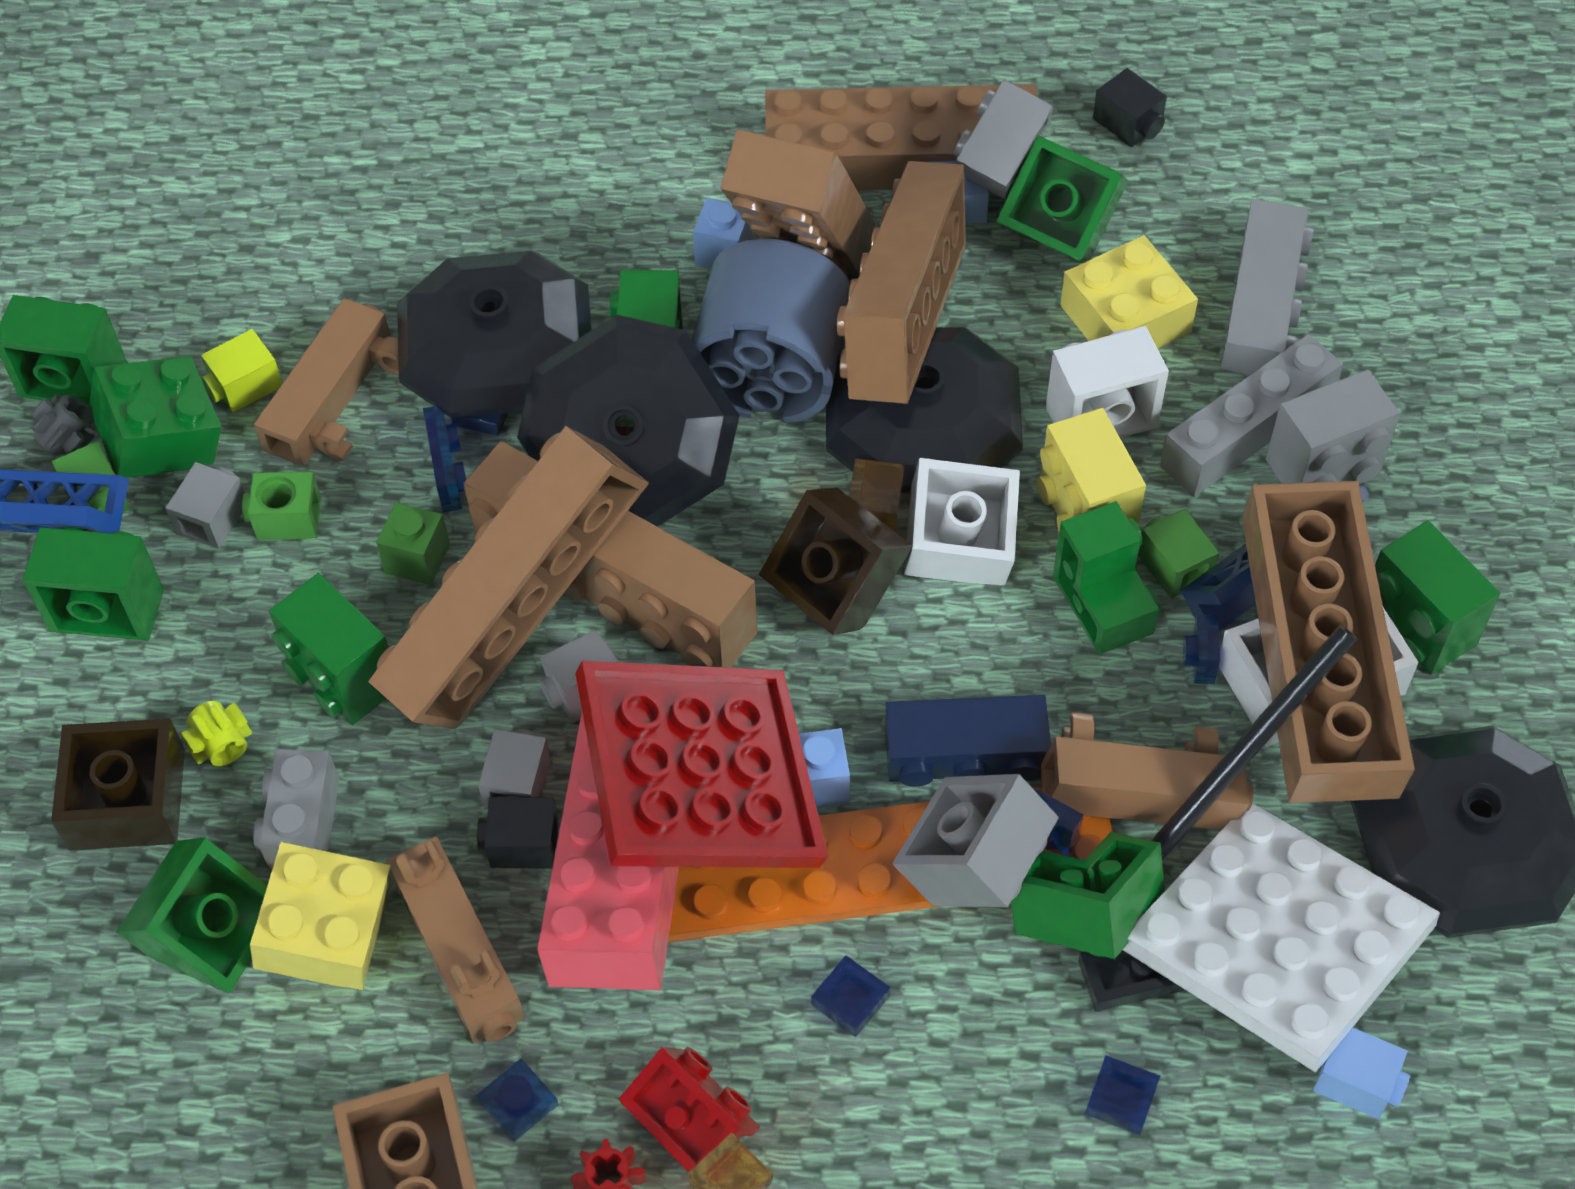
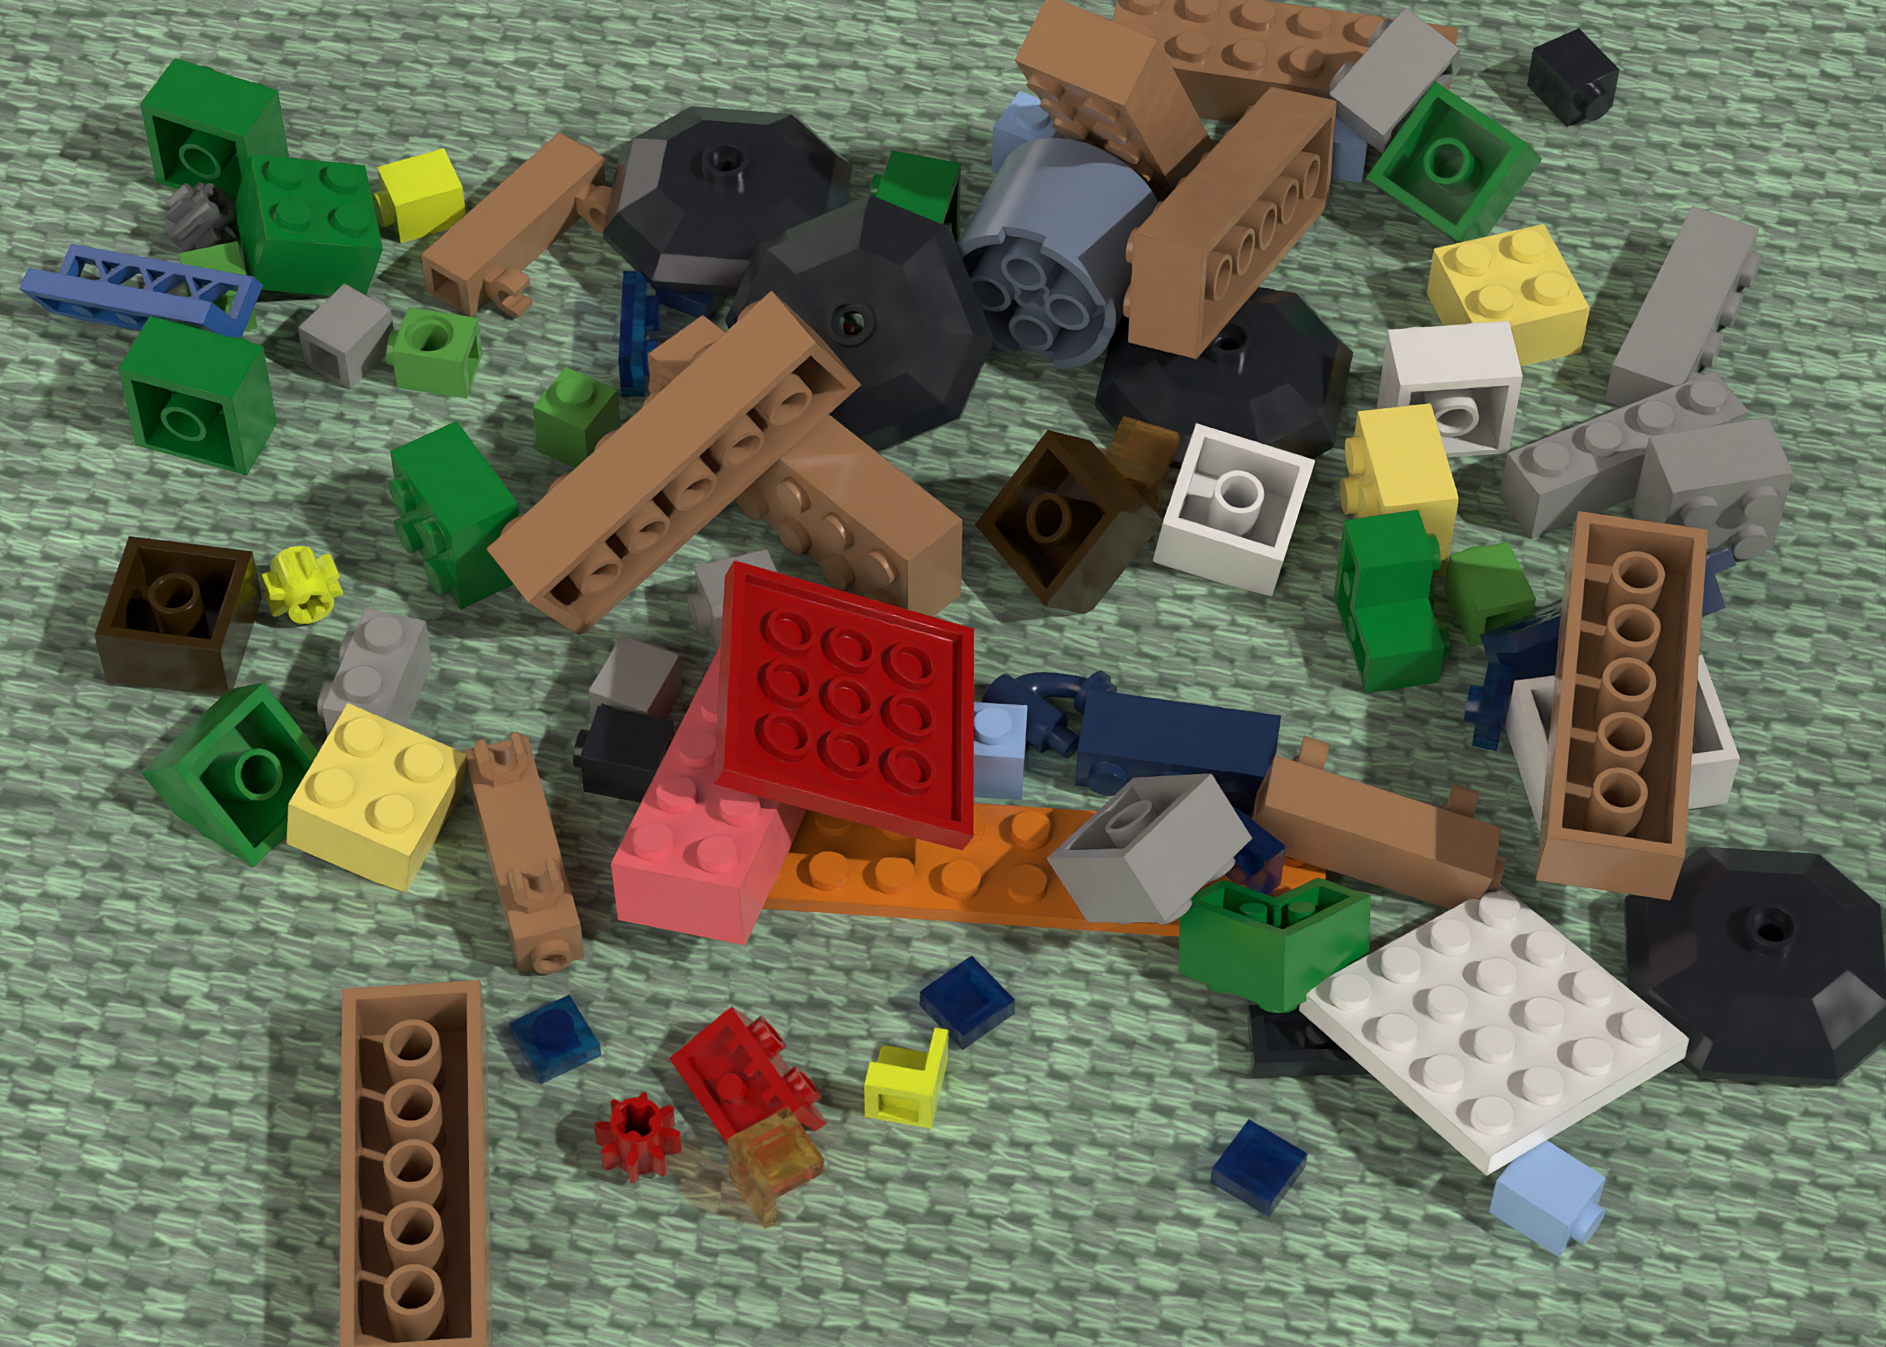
camera: 10 degrees right, 5 degrees down
(818, 1078) = (907, 1083): none -> neon yellow panel
(829, 714) = (1045, 723): none -> dark blue plant
(1254, 738) = (1503, 795): black piece -> none
(1434, 596) = (1780, 693): green brick -> none

